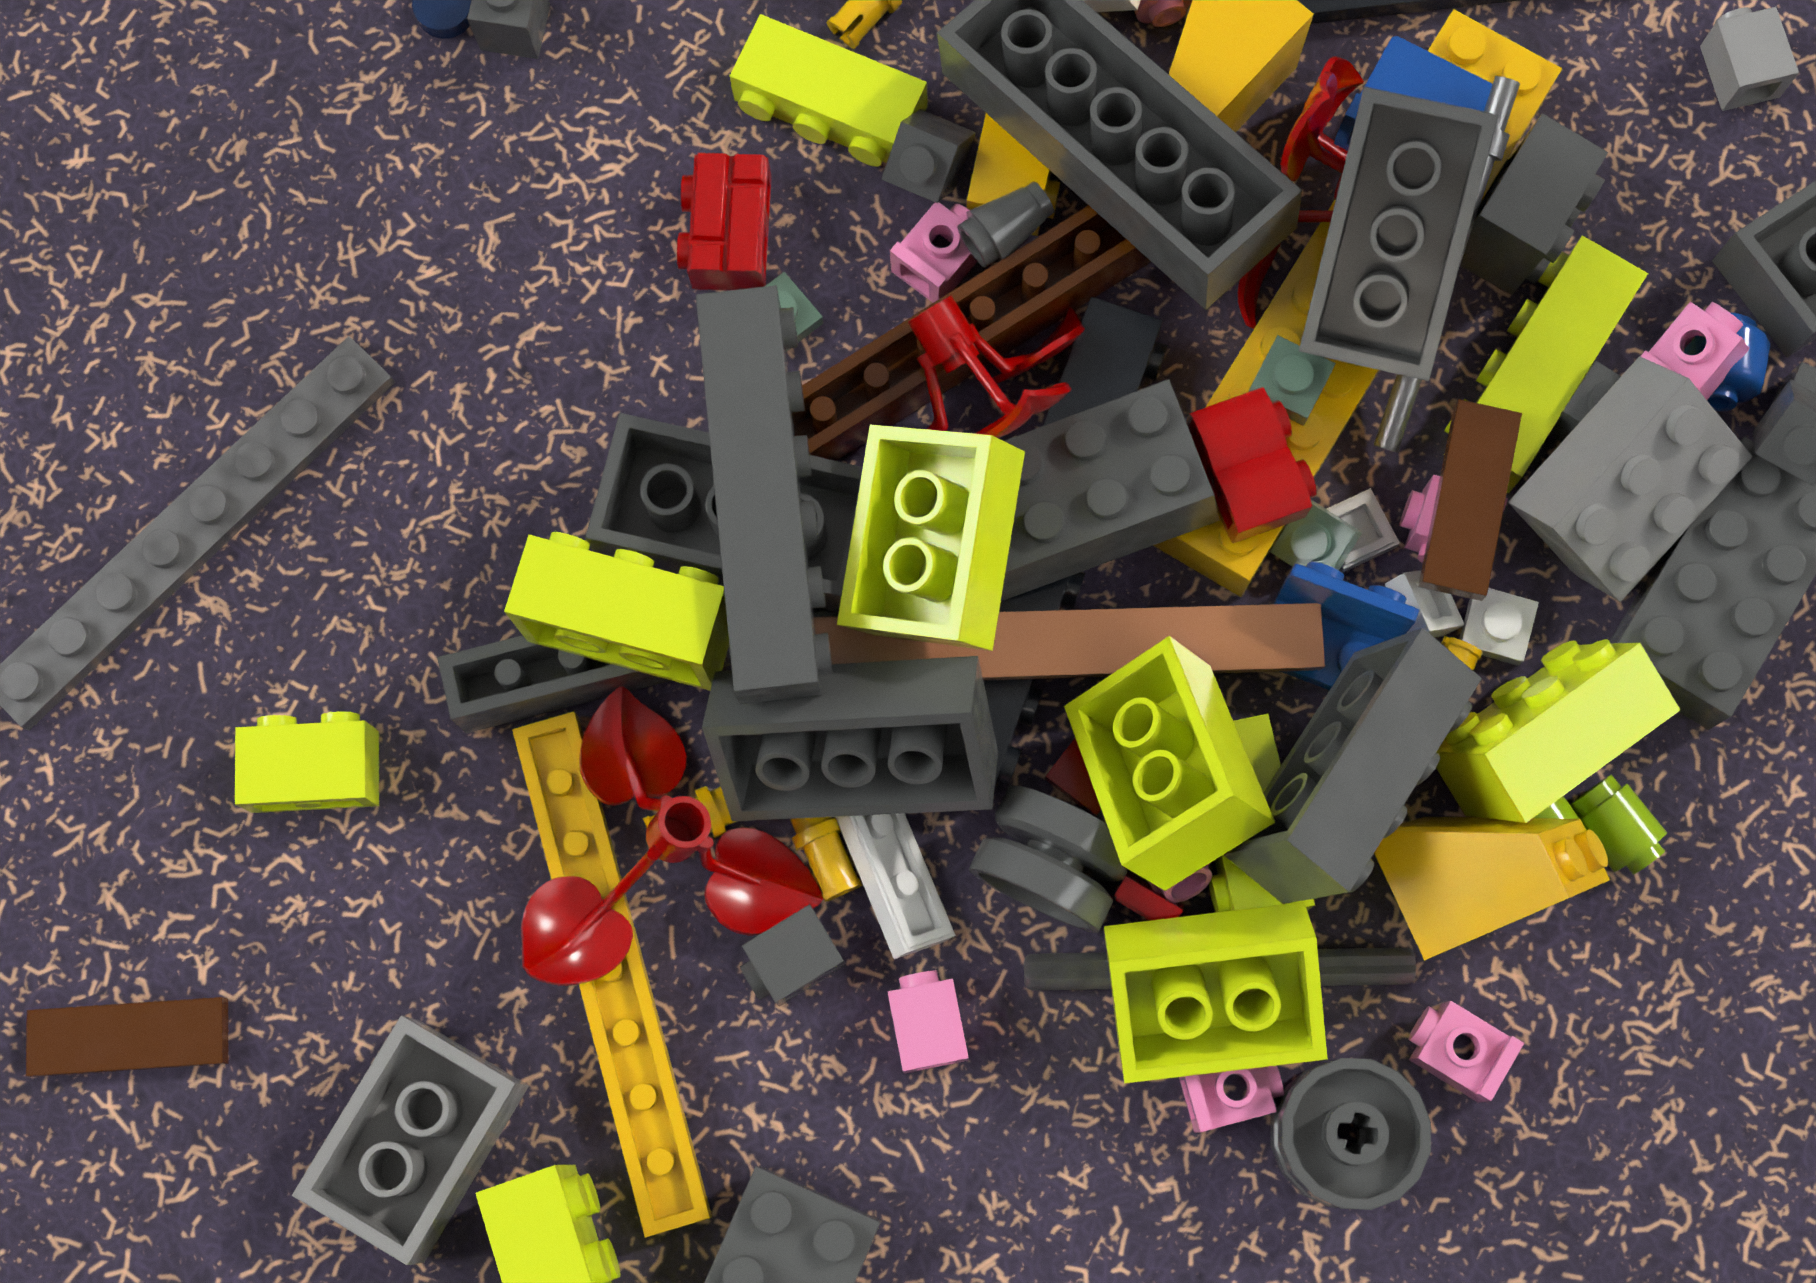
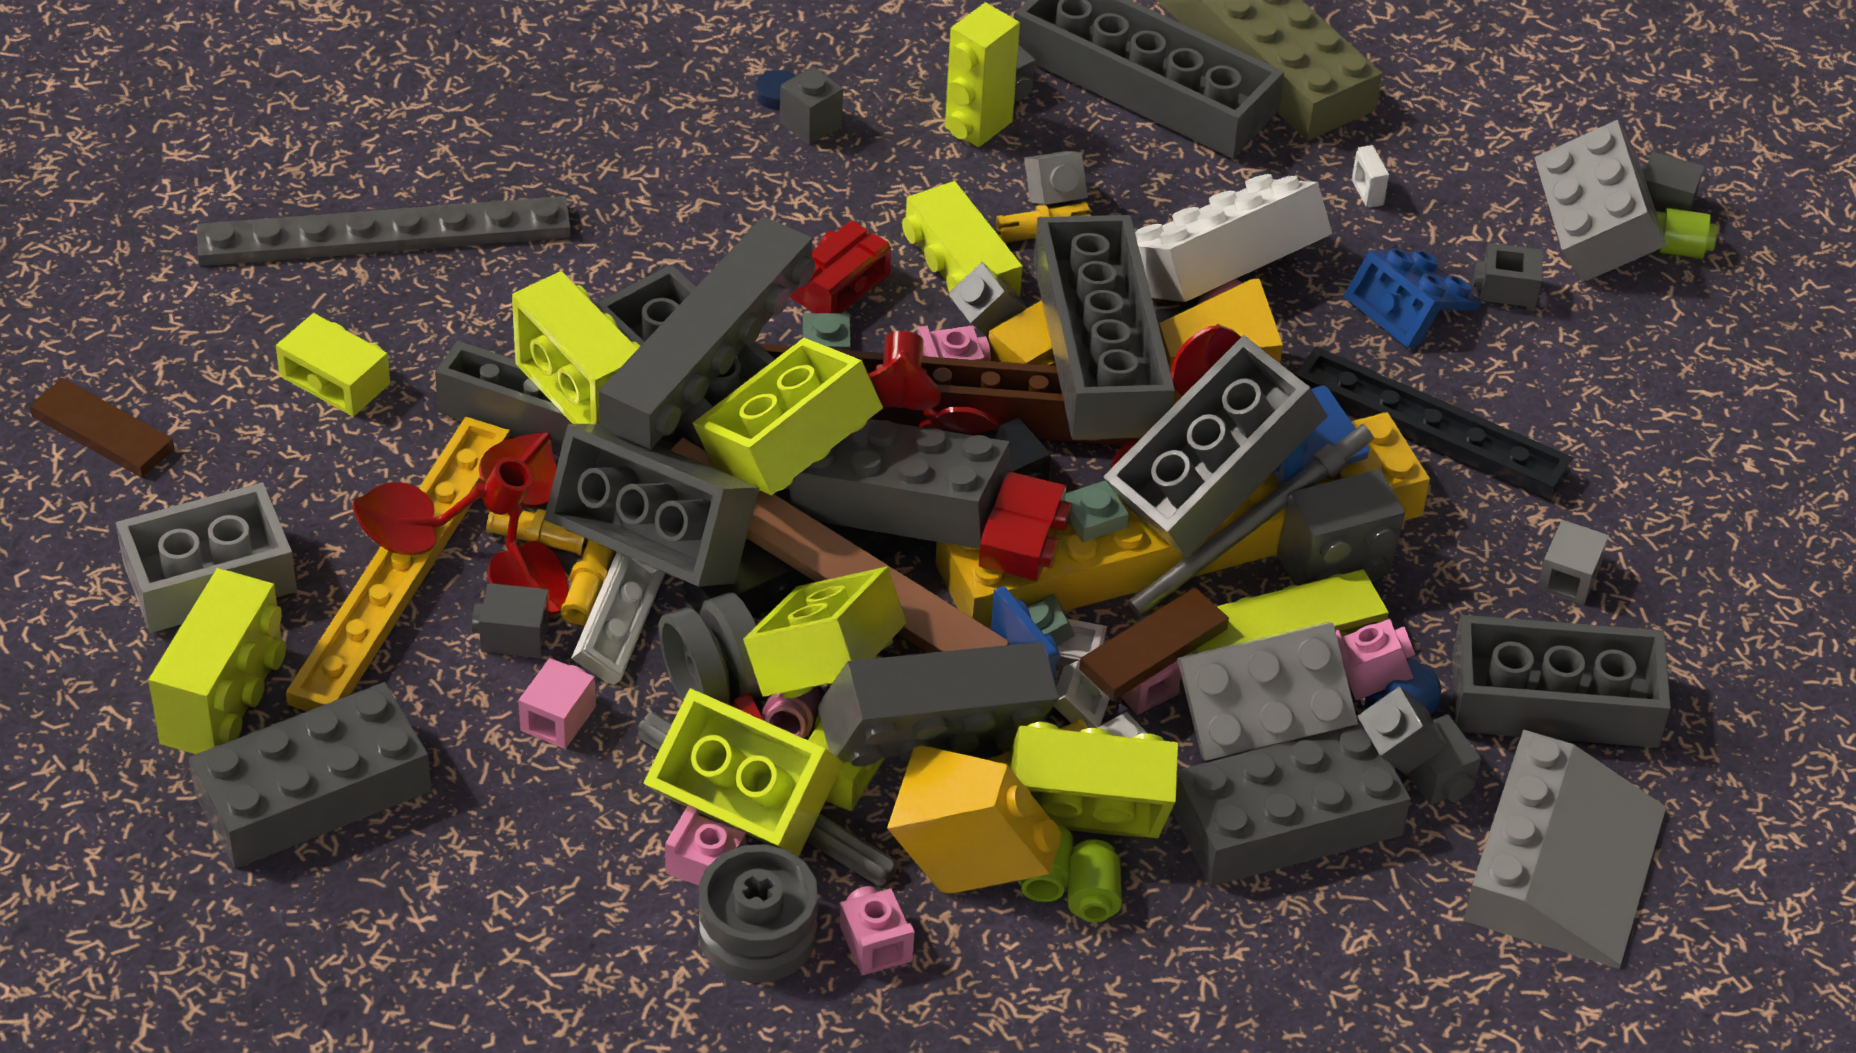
camera: 30 degrees right, 30 degrees down
(1004, 223) = (999, 344): dark grey cone -> none

